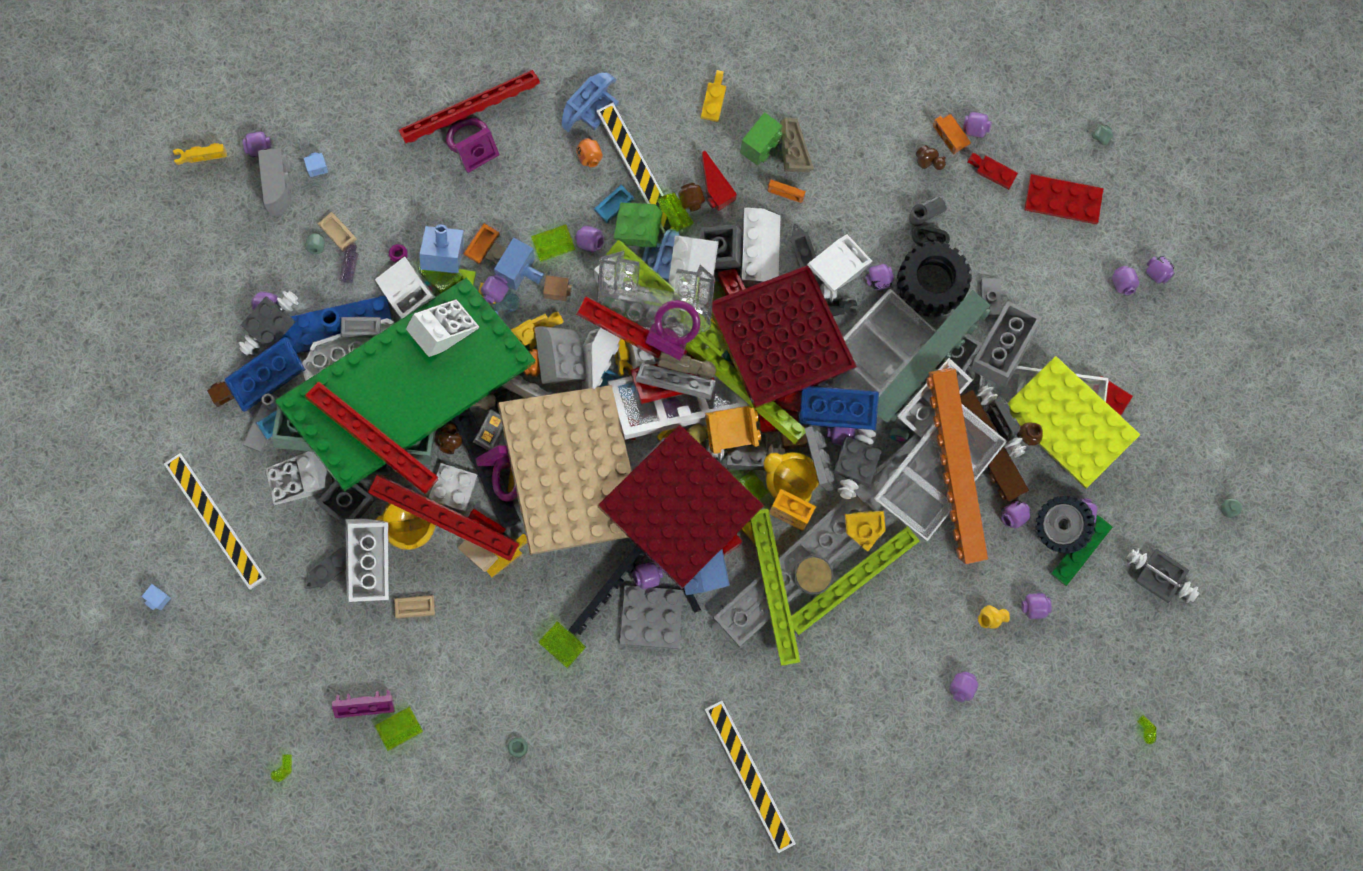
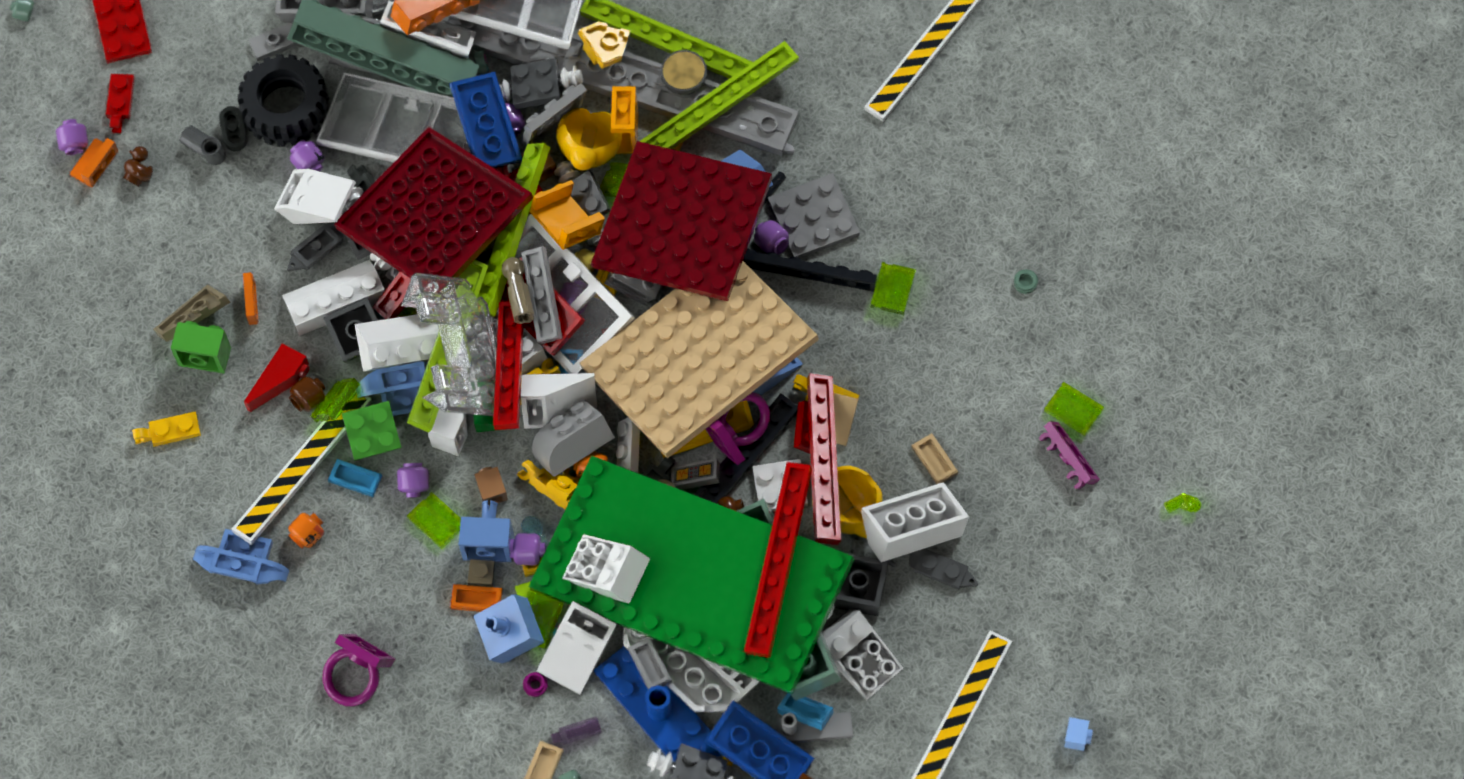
camera: 105 degrees left, 10 degrees down
(469, 106) = (312, 694): red plate -> none
(667, 339) = (502, 314): magenta tile -> none

